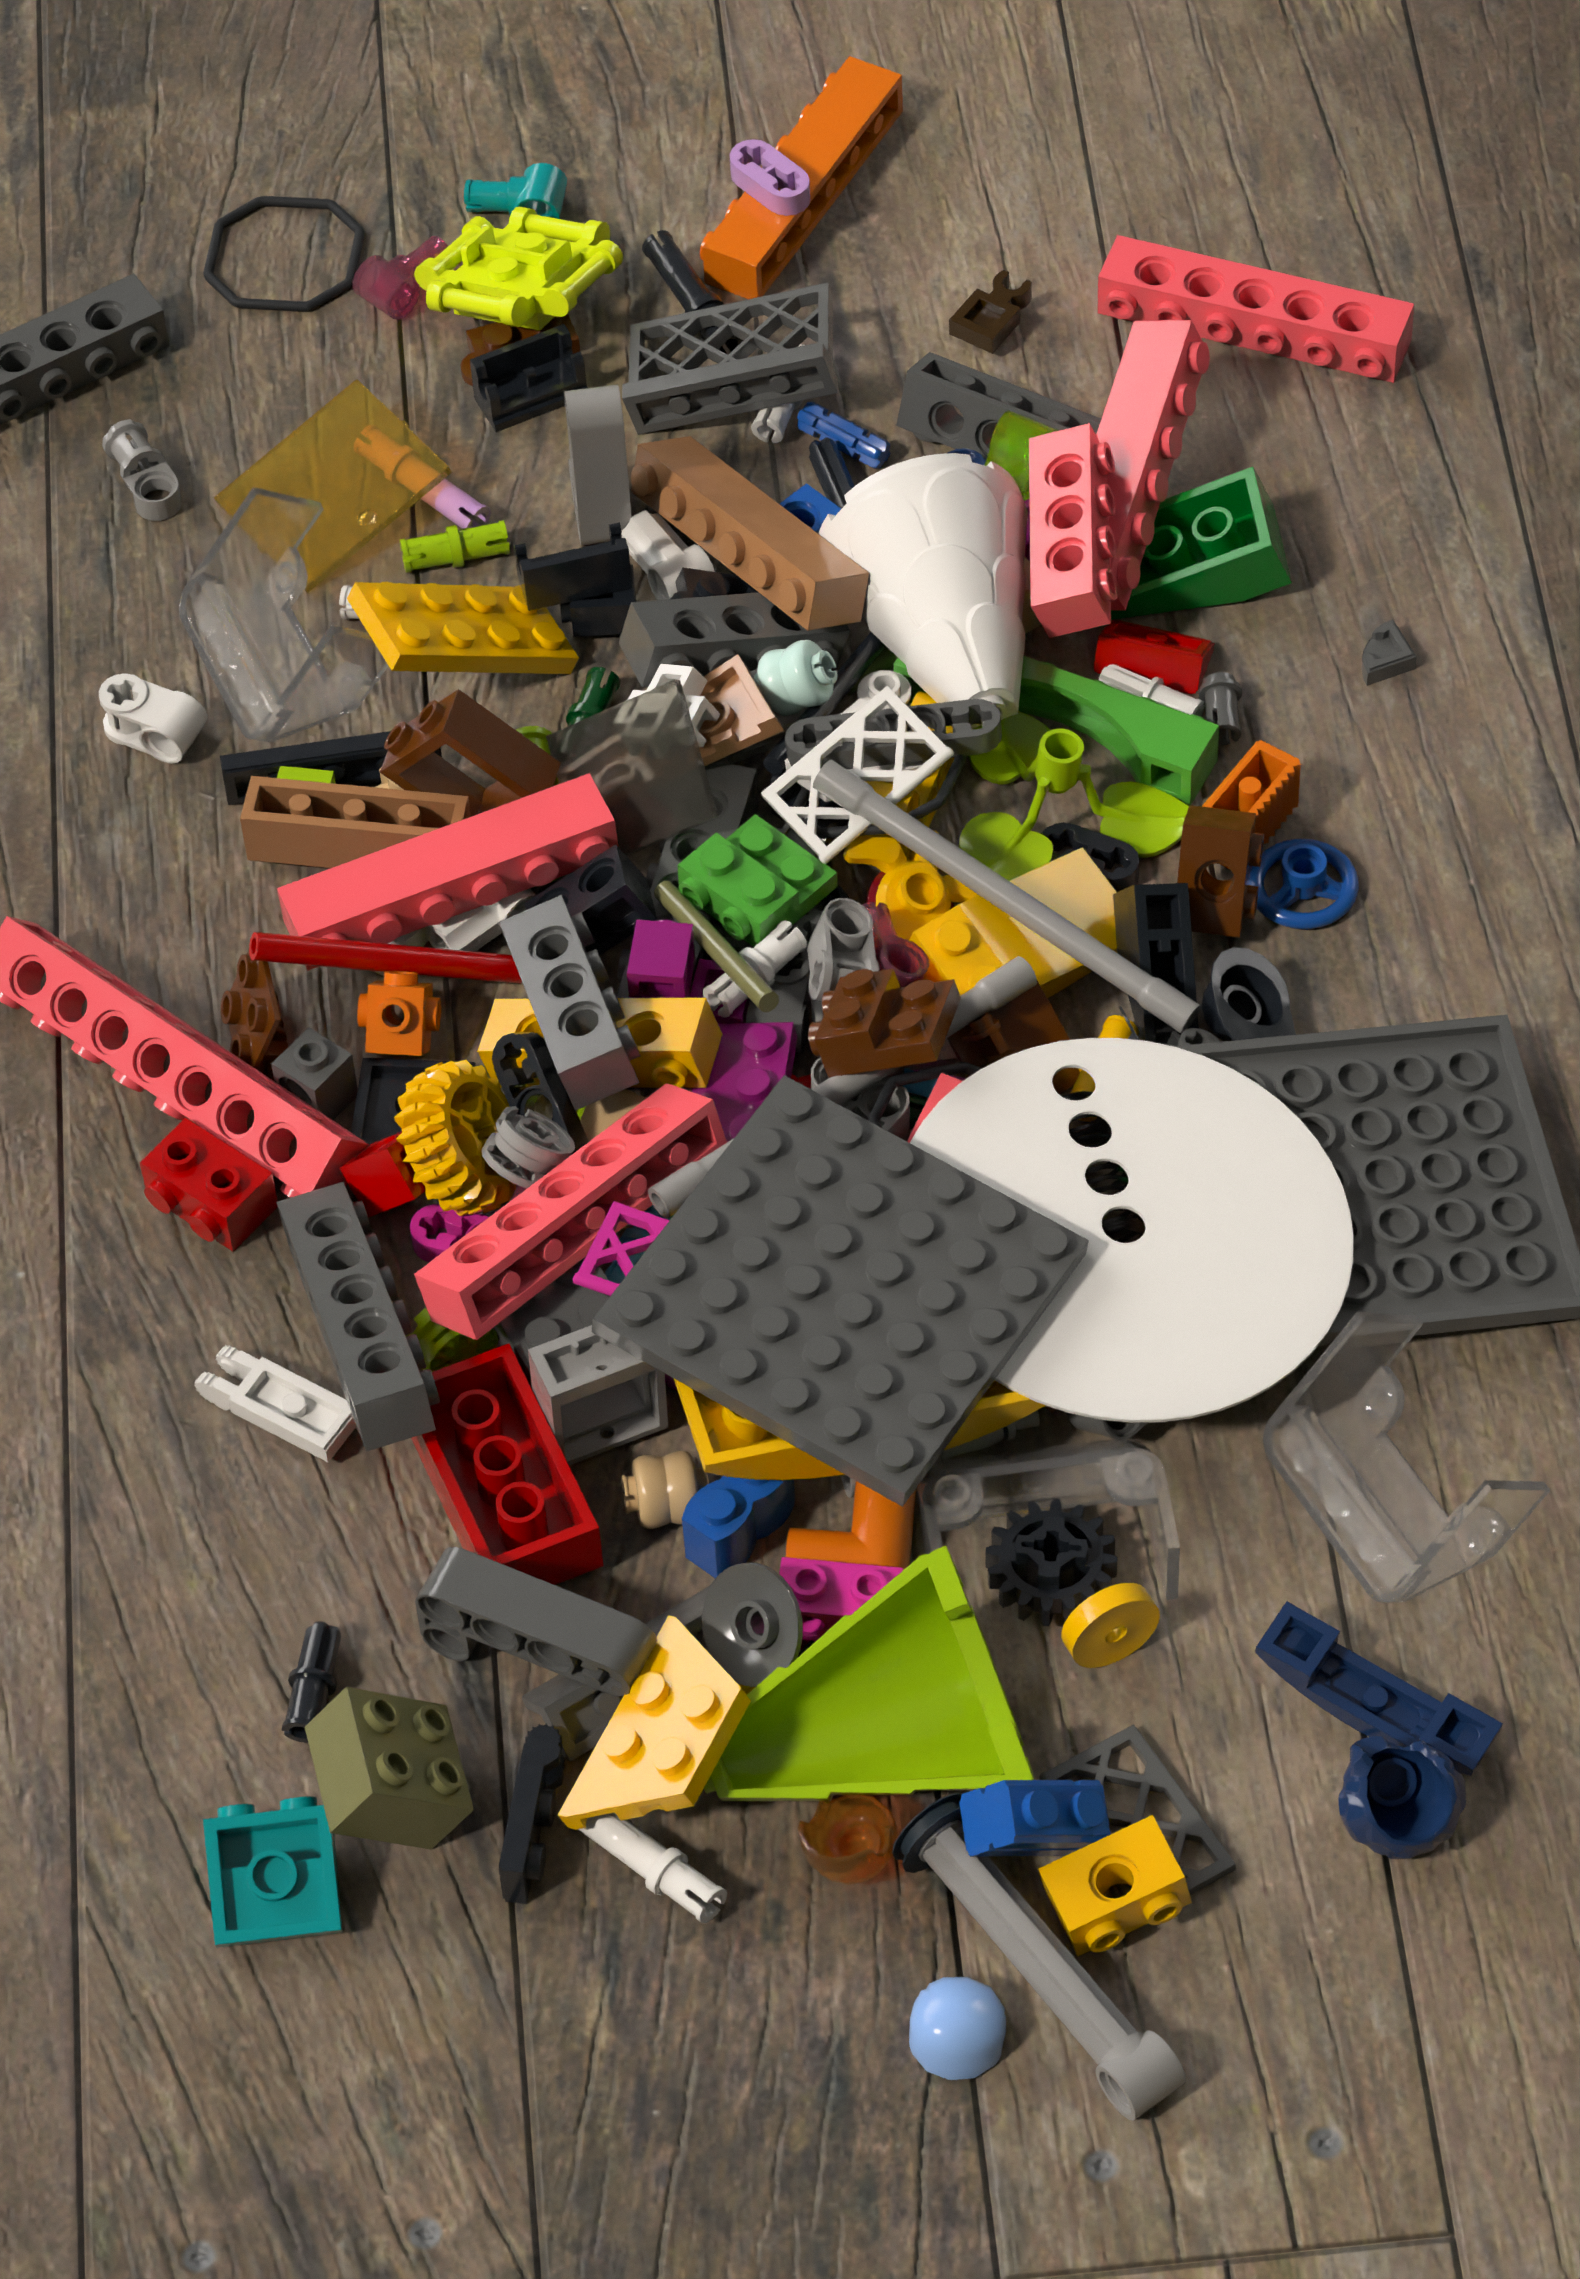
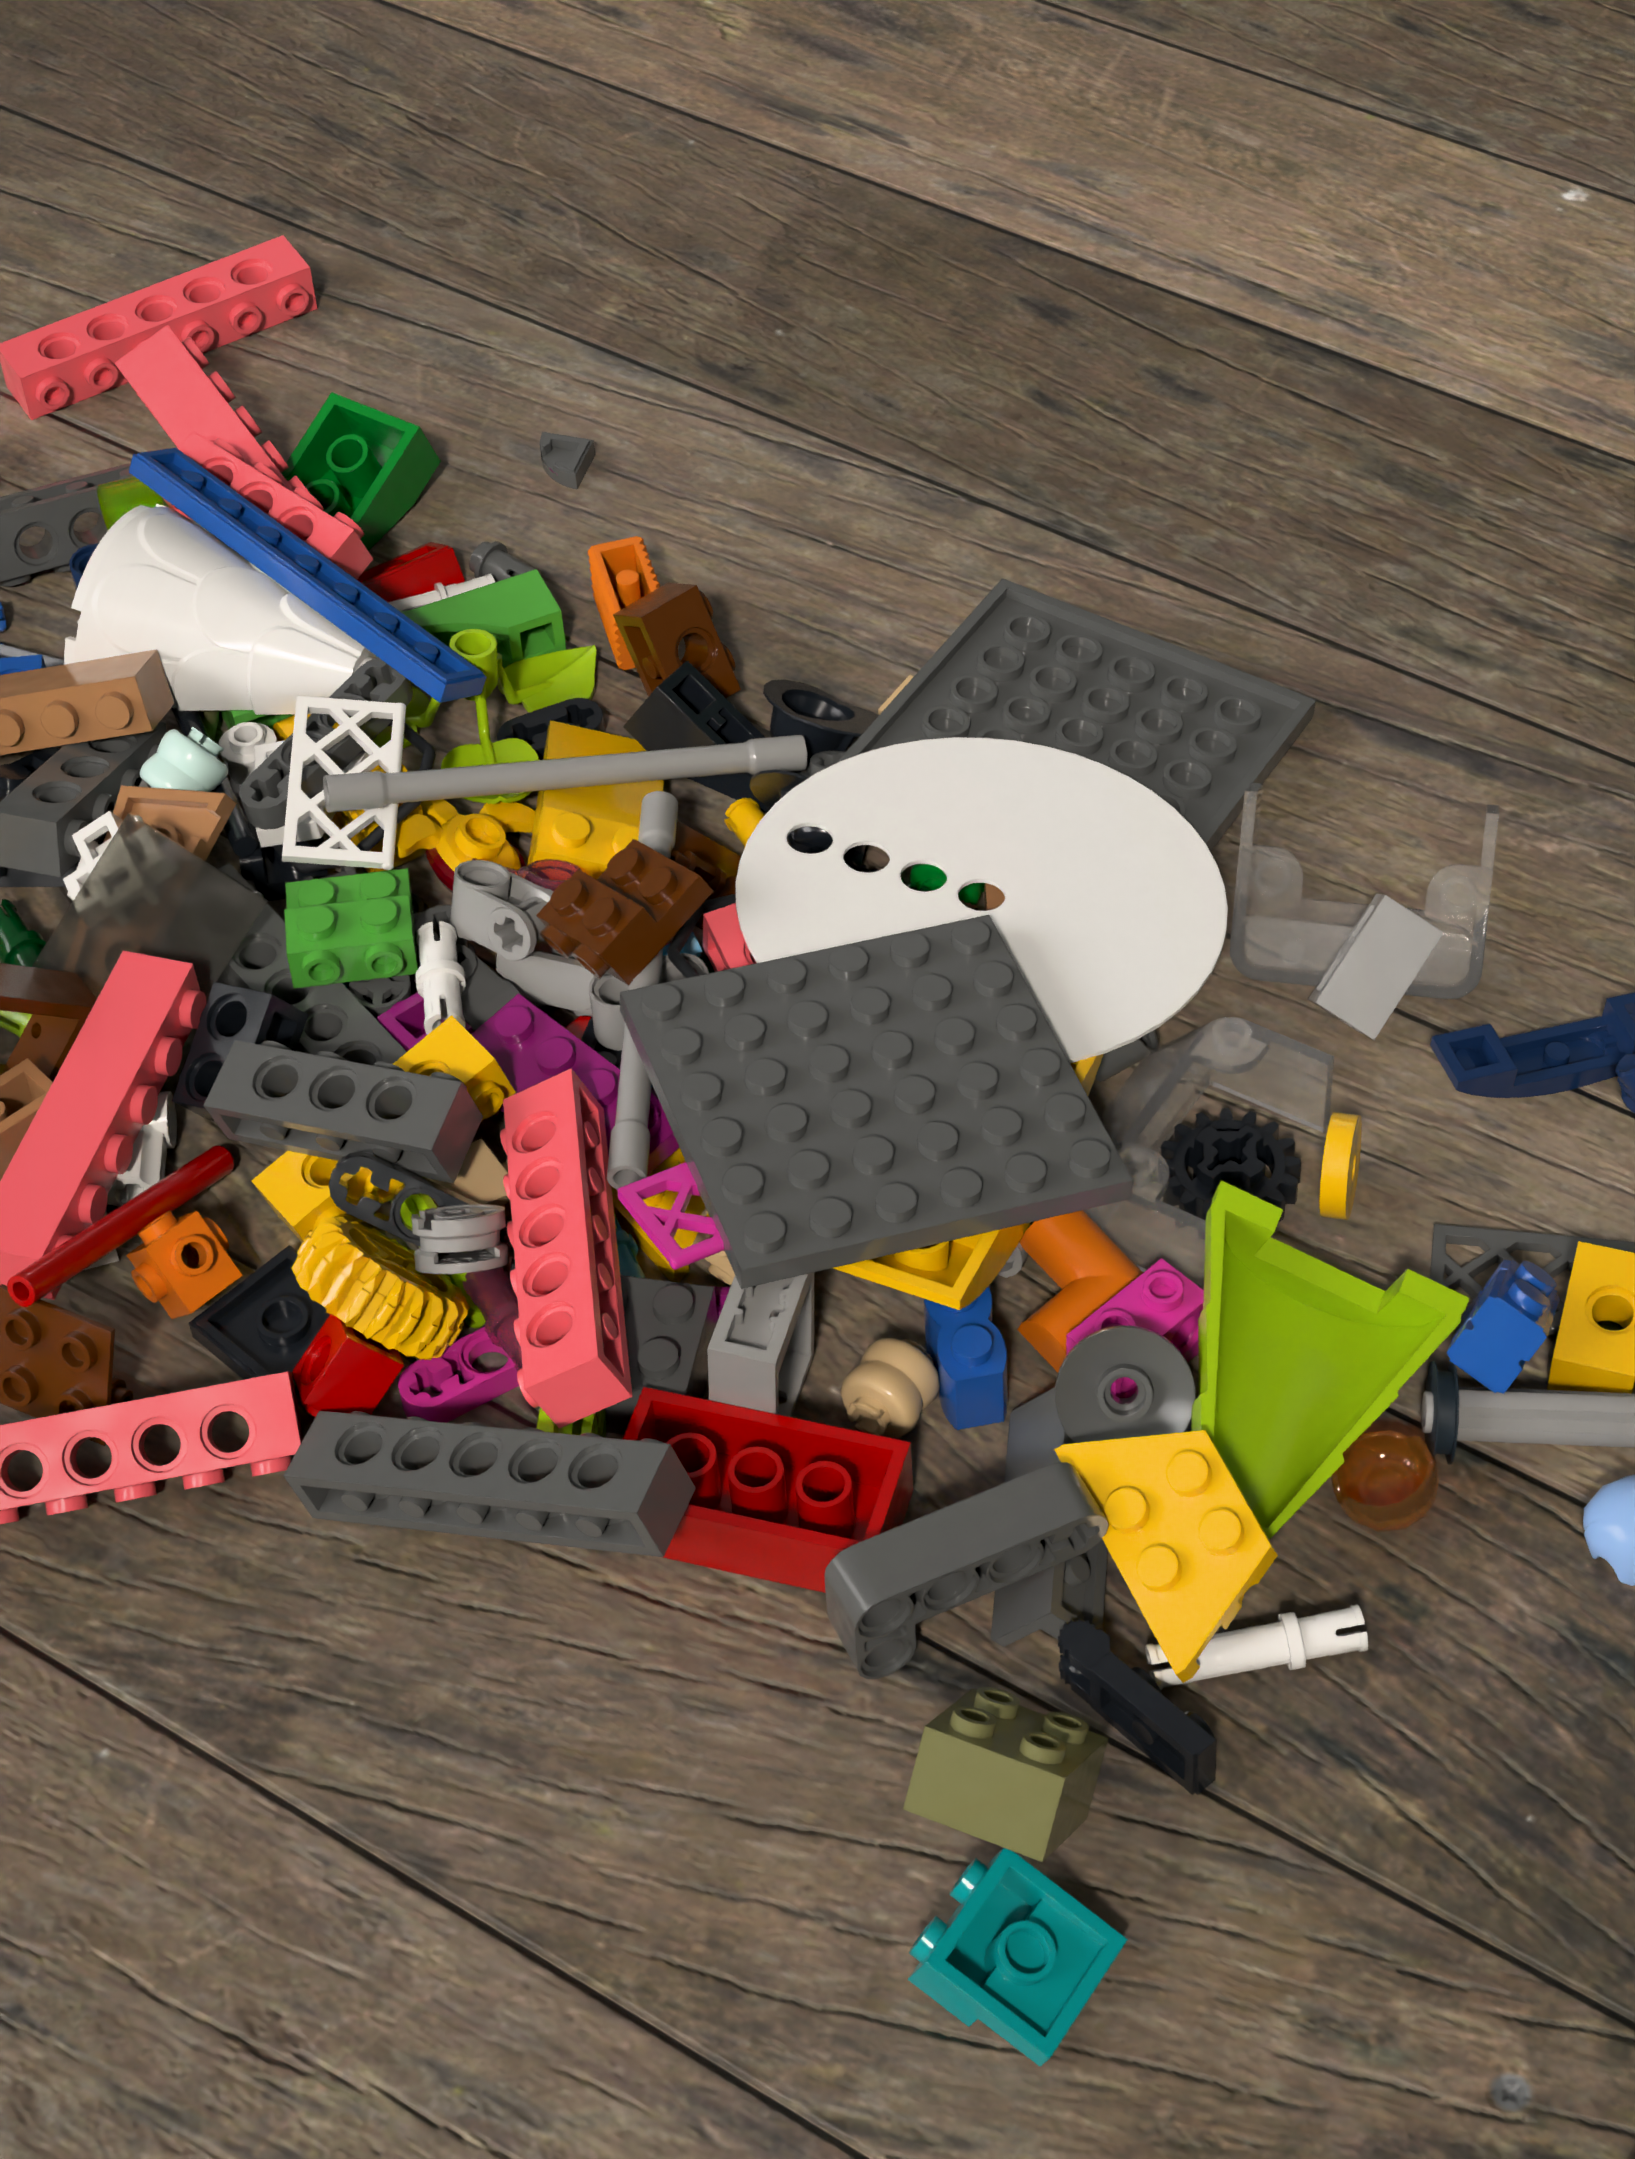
camera: 50 degrees left, 5 degrees down
(208, 1185) = (190, 1526): red brick -> none
(279, 1402) = (484, 1624): white hinge -> none
(312, 1679) = (823, 1793): black axle -> none
(317, 1073) = (169, 1357): dark grey brick -> none
(661, 960) = (366, 1025): magenta brick -> none
(717, 947) = (399, 981): olive bar -> none
(1019, 600) = (308, 575): none -> blue tile
(1303, 878) = (737, 612): blue piece -> none
(1322, 1518) = (1375, 966): none -> light grey hinge

